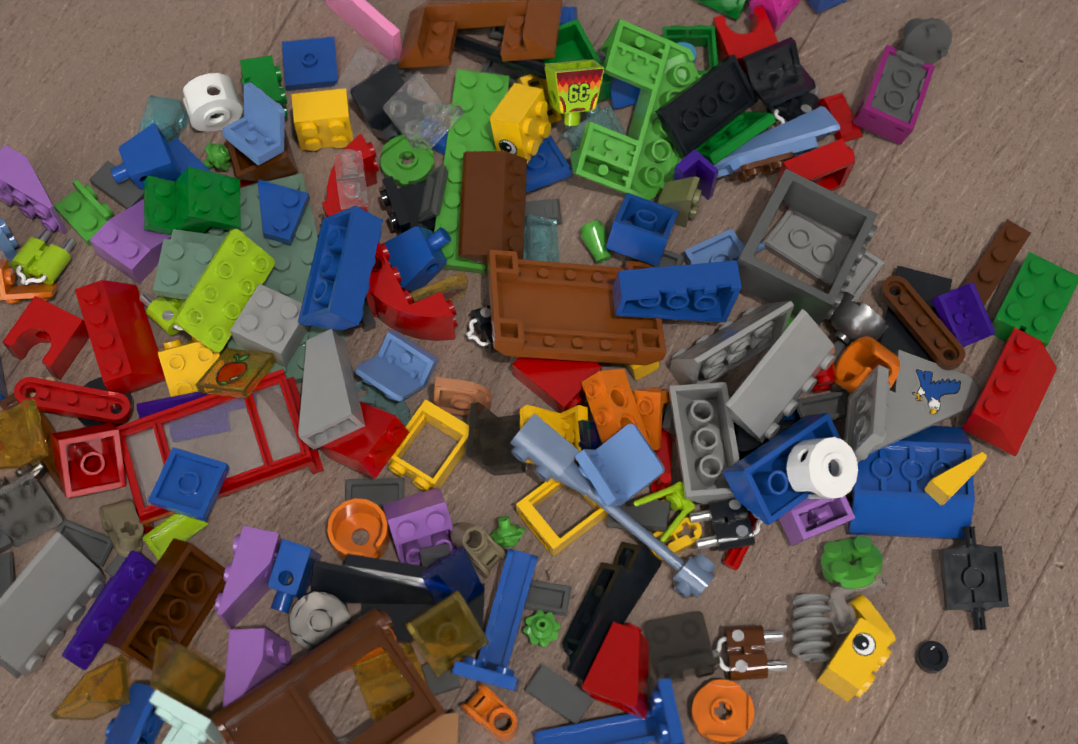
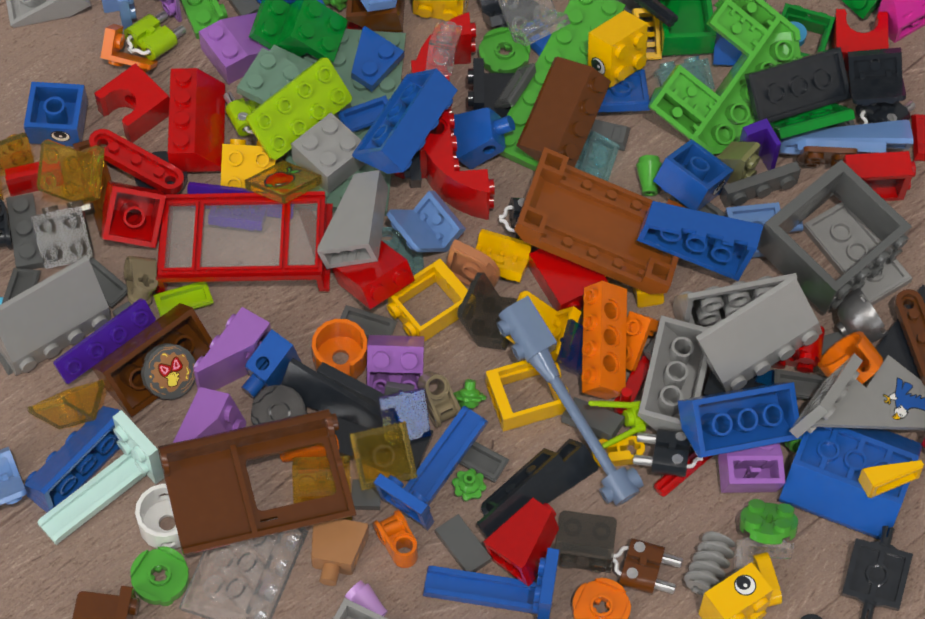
camera: 20 degrees right, 5 degrees down
(184, 675) = (150, 410): clear yellow slope -> none
(188, 617) = (168, 371): none -> tile
(189, 484) = (209, 259): blue plate -> none
(292, 272) = (362, 115): none -> blue tile
(451, 288) = (498, 169): clear yellow tile -> none
(487, 369) = (507, 252): none -> yellow bracket
(574, 87) = (676, 30): lime torso -> none
(620, 466) = (587, 366): medium blue bracket -> none
(707, 216) = (760, 184): none -> dark grey plate
(814, 472) = (754, 424): white piece -> none

